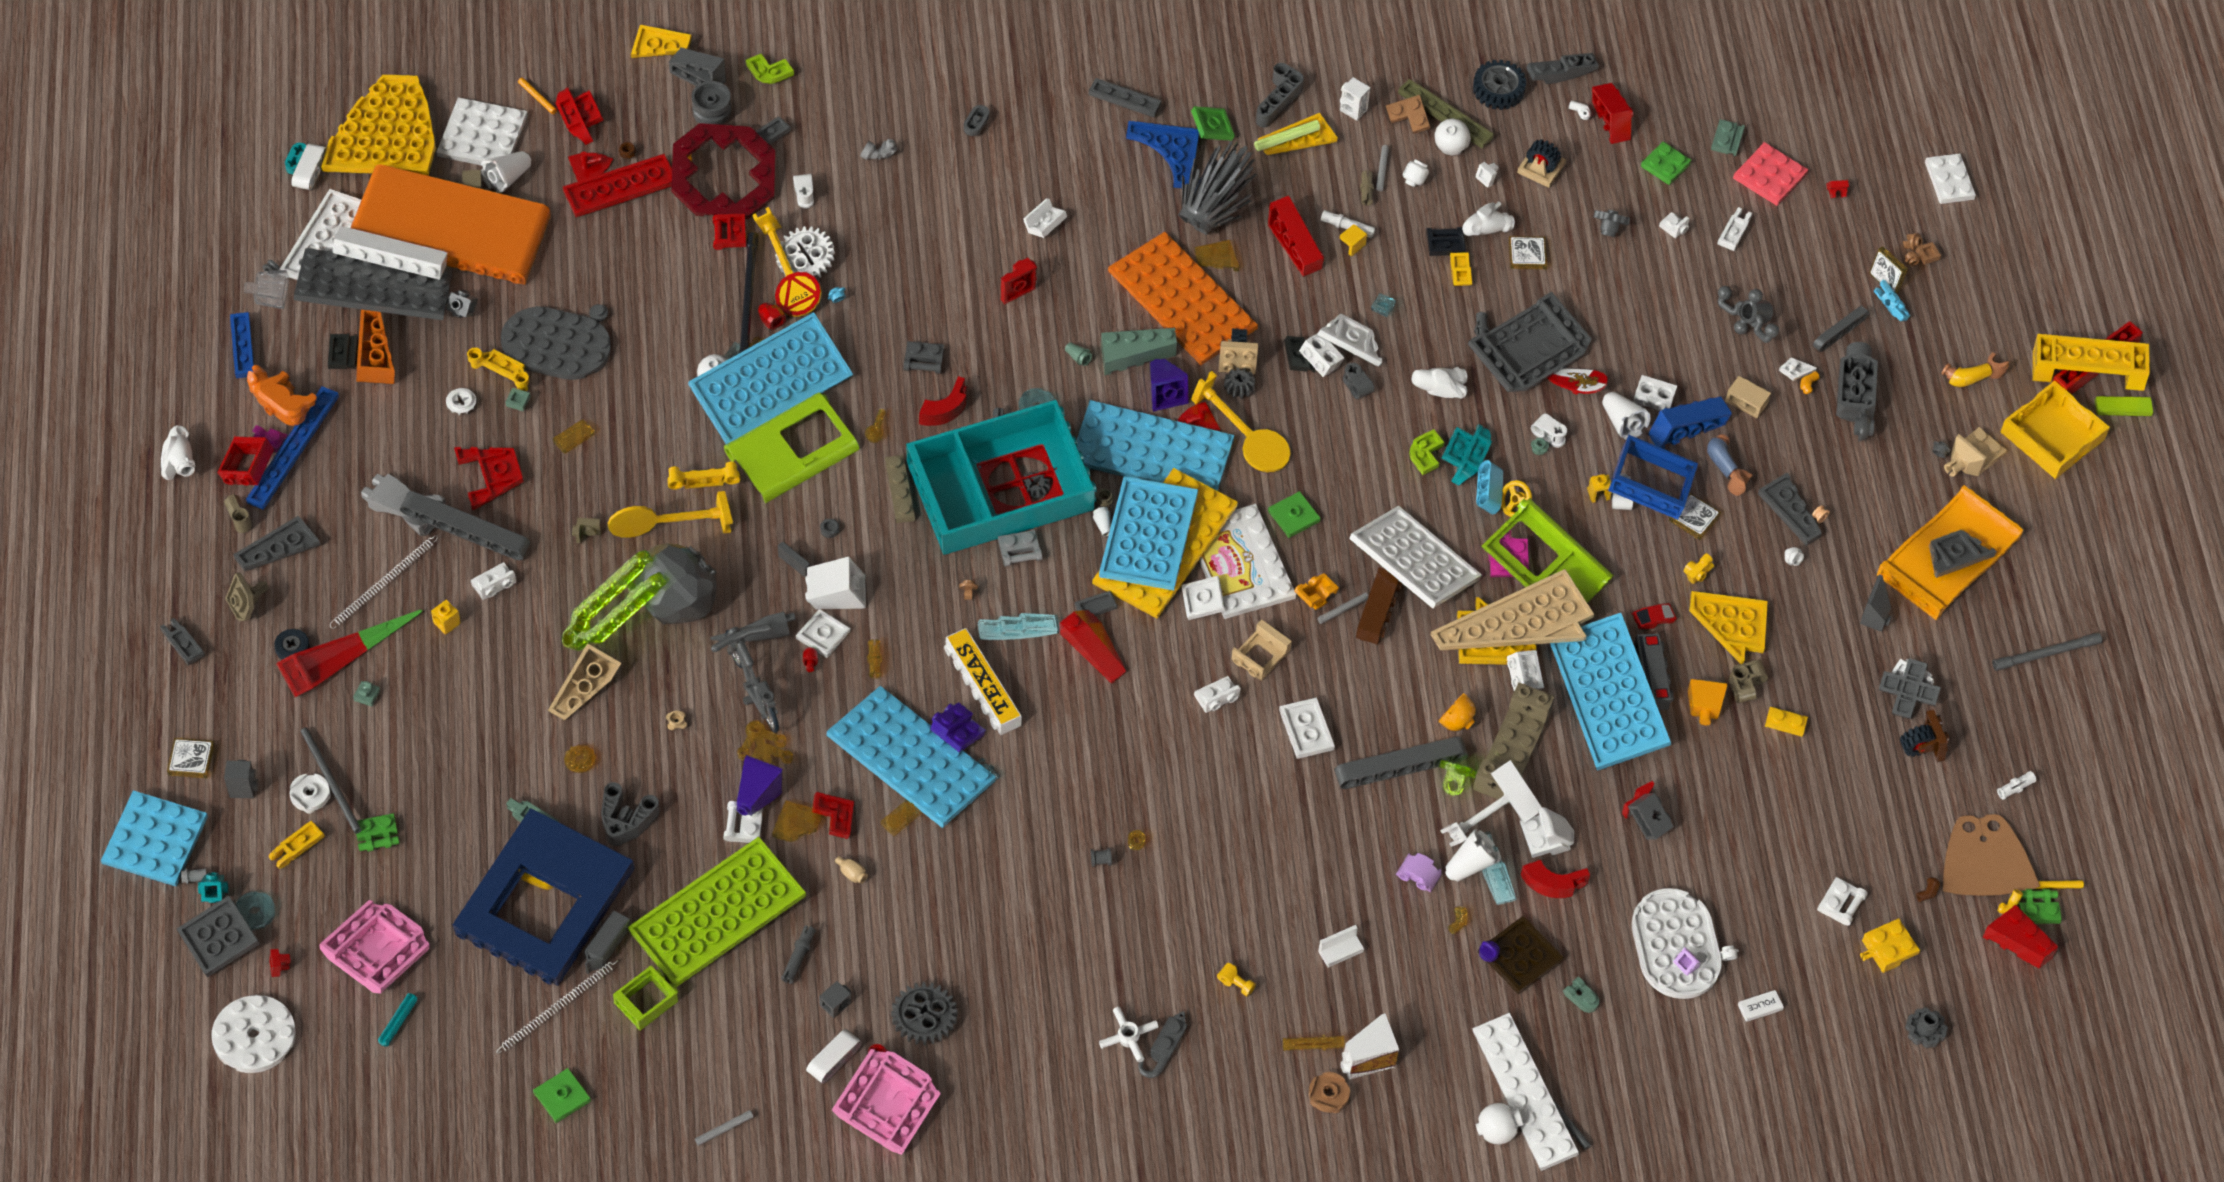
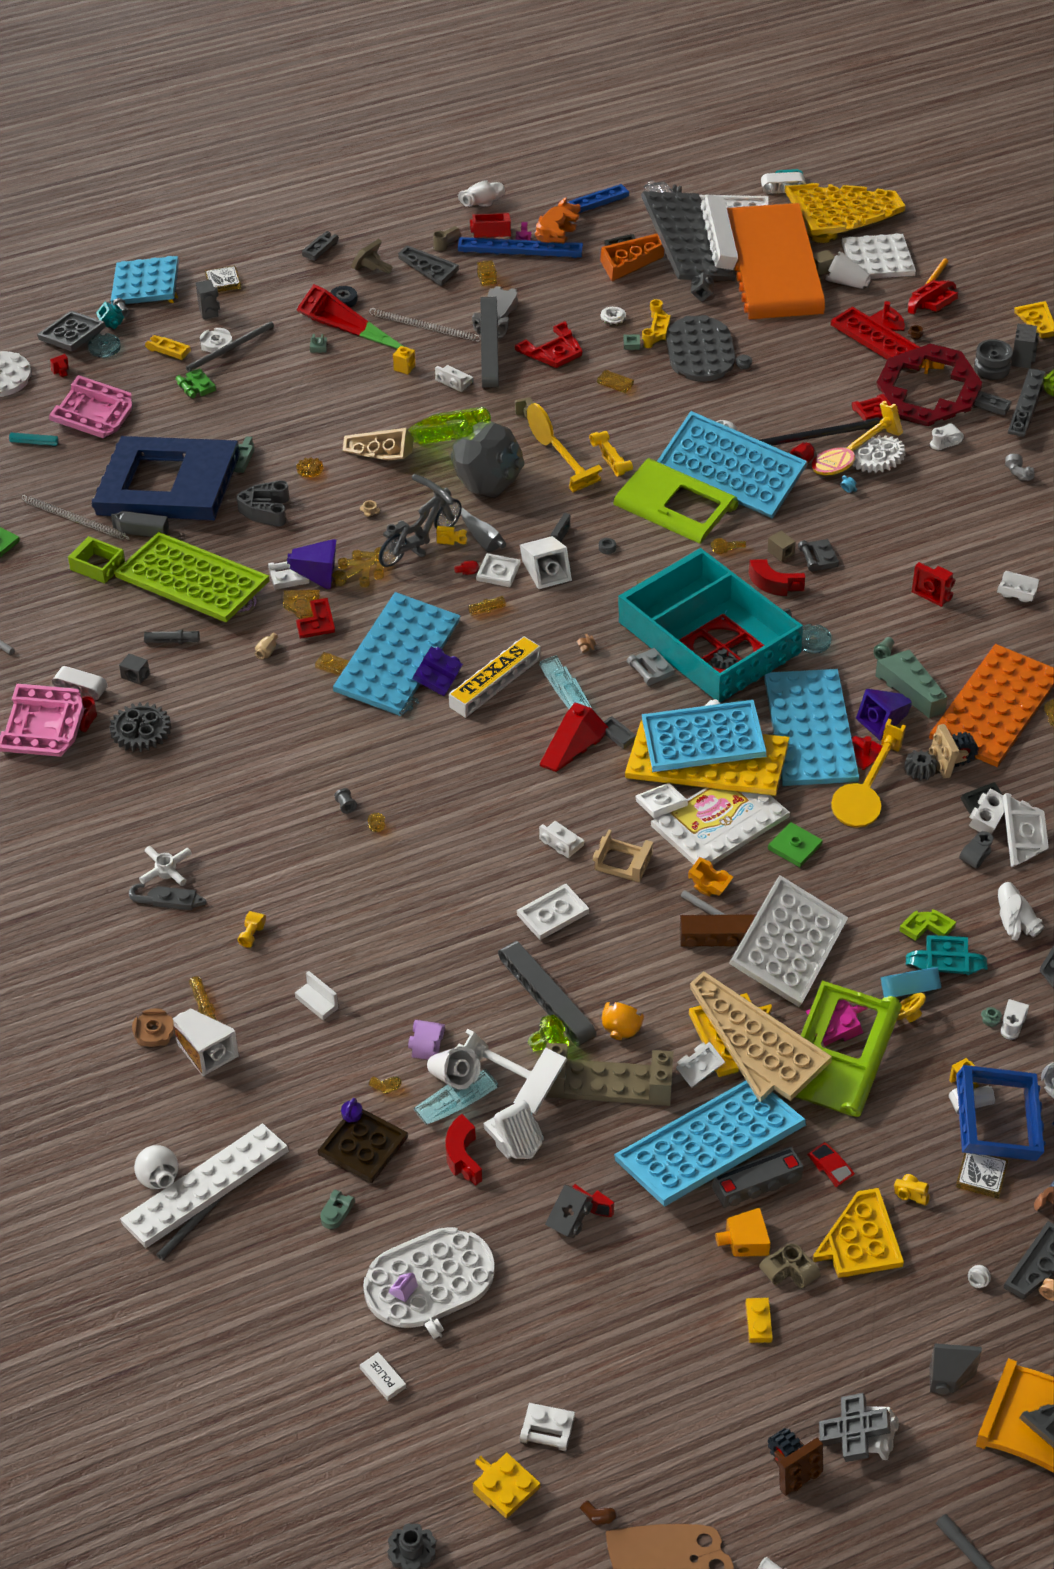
camera: 75 degrees right, 10 degrees down
(325, 493) = (486, 273): none -> clear yellow brick
(758, 656) = (448, 535): none -> yellow plate
(789, 105) = (1027, 402): none -> dark grey slope
(901, 382) = (781, 546): none -> dark tan brick

